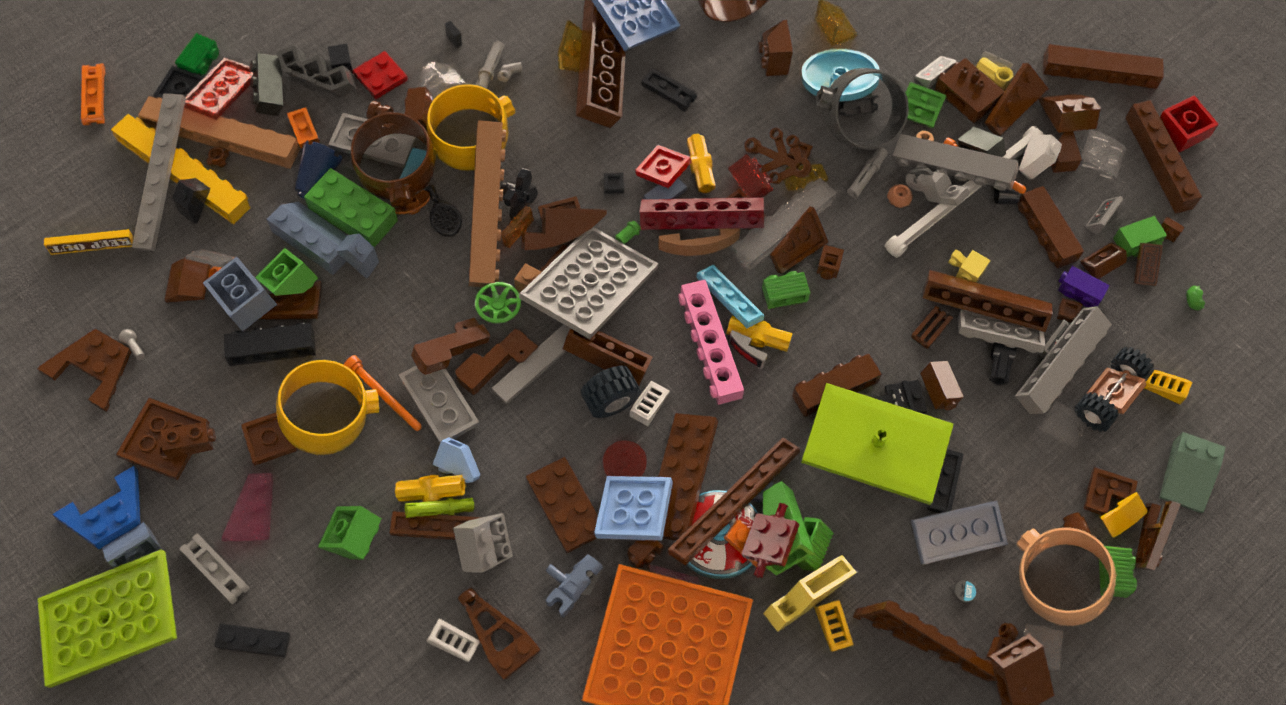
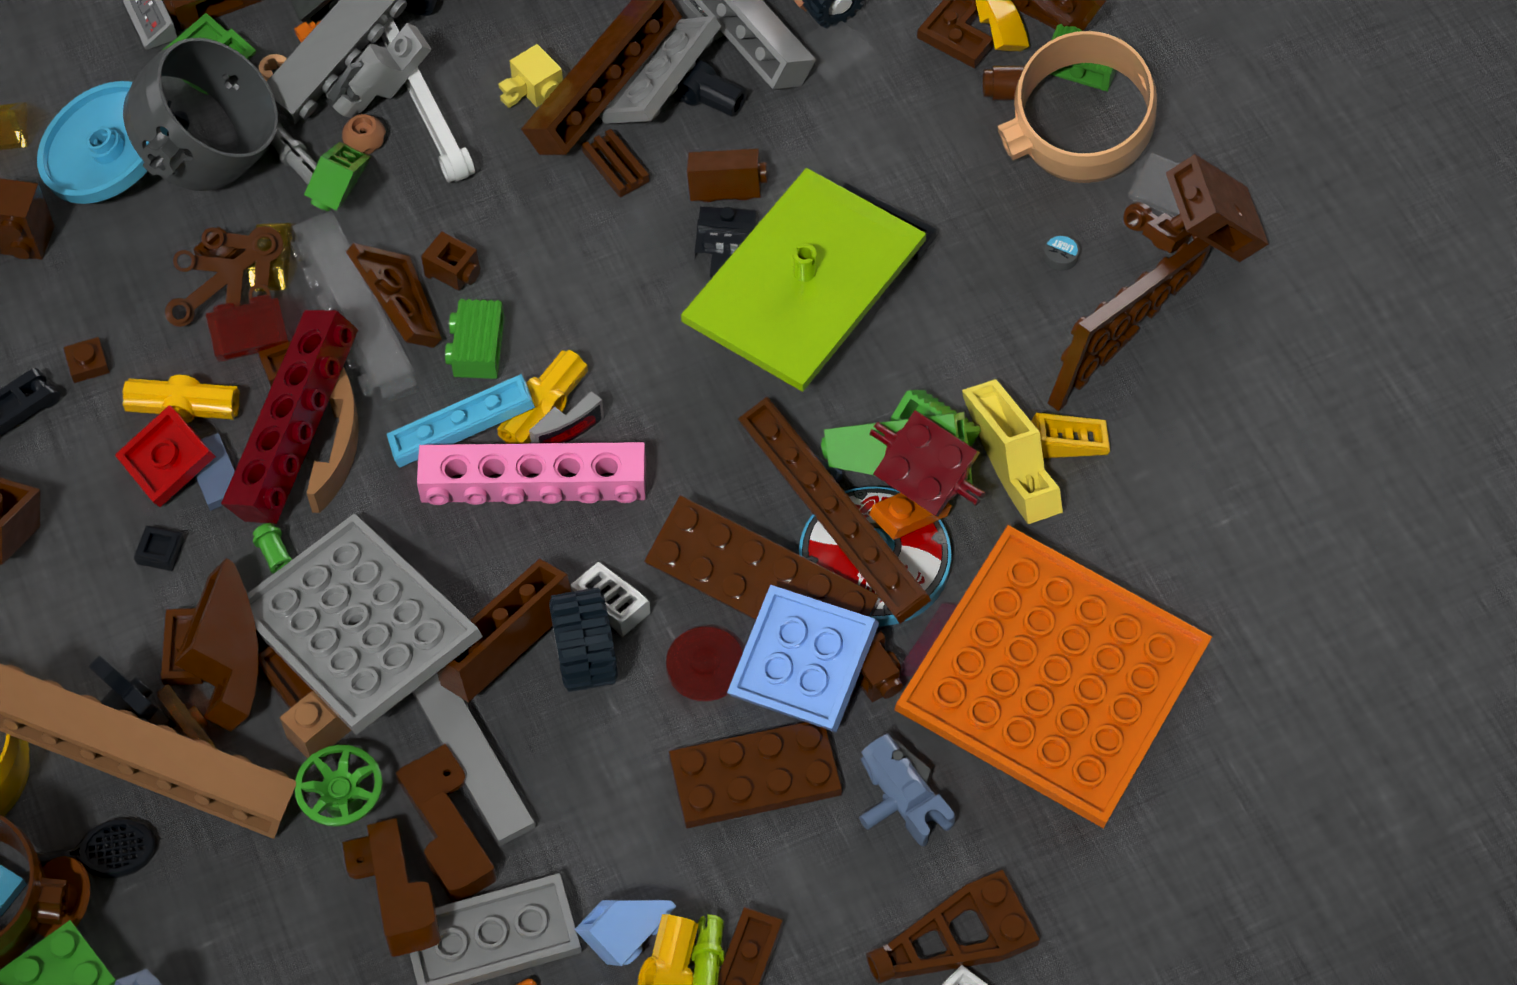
camera: 70 degrees left, 5 degrees down
(483, 543) = (798, 911): light grey slope -> none
(711, 115) = (86, 360): none -> reddish brown plate
(853, 376) = (668, 293): reddish brown brick -> none
(860, 187) = (336, 176): none -> bright green slope
(959, 532) = (968, 229): sand blue tile -> none

